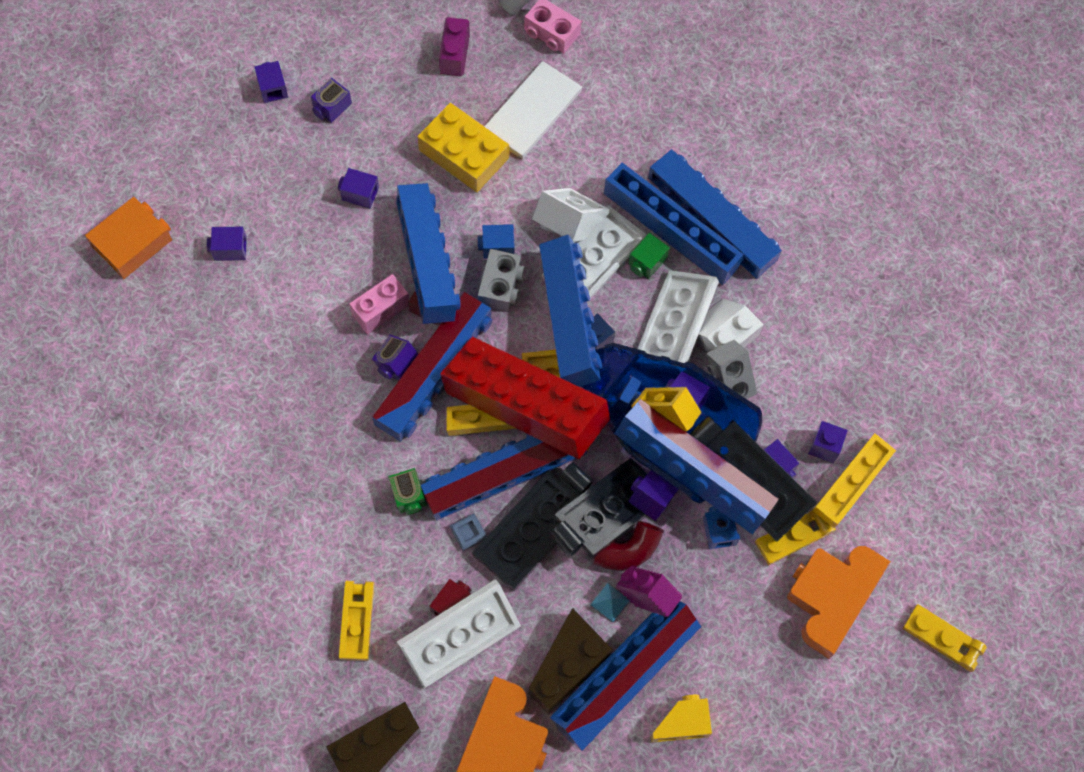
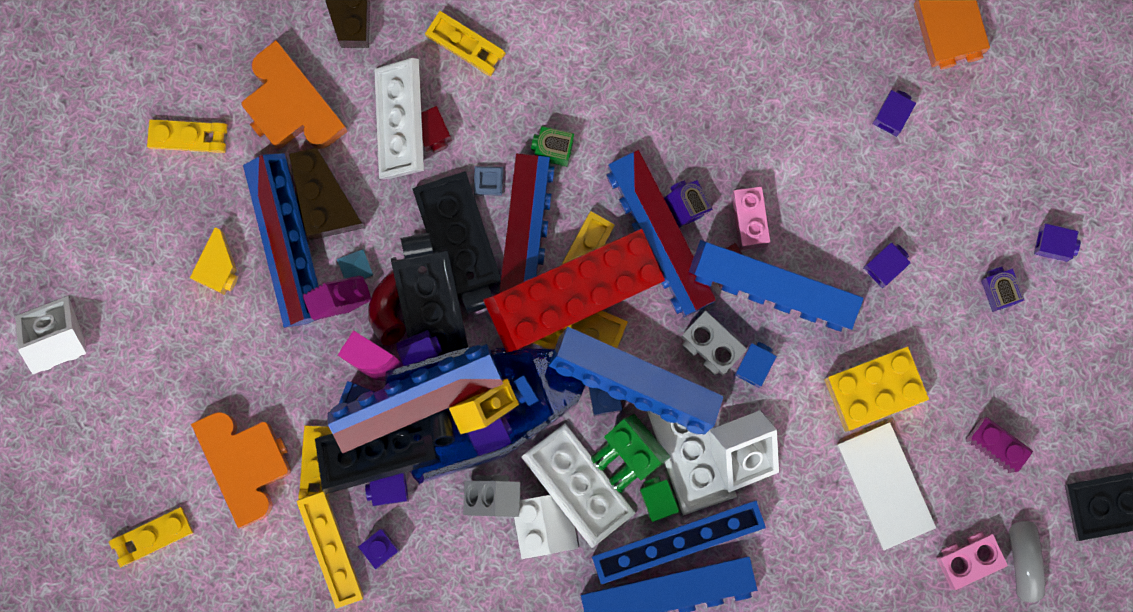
camera: 125 degrees right, 15 degrees up
(619, 290) = (636, 447): none -> green brick
(686, 519) = (368, 357): none -> dark pink brick

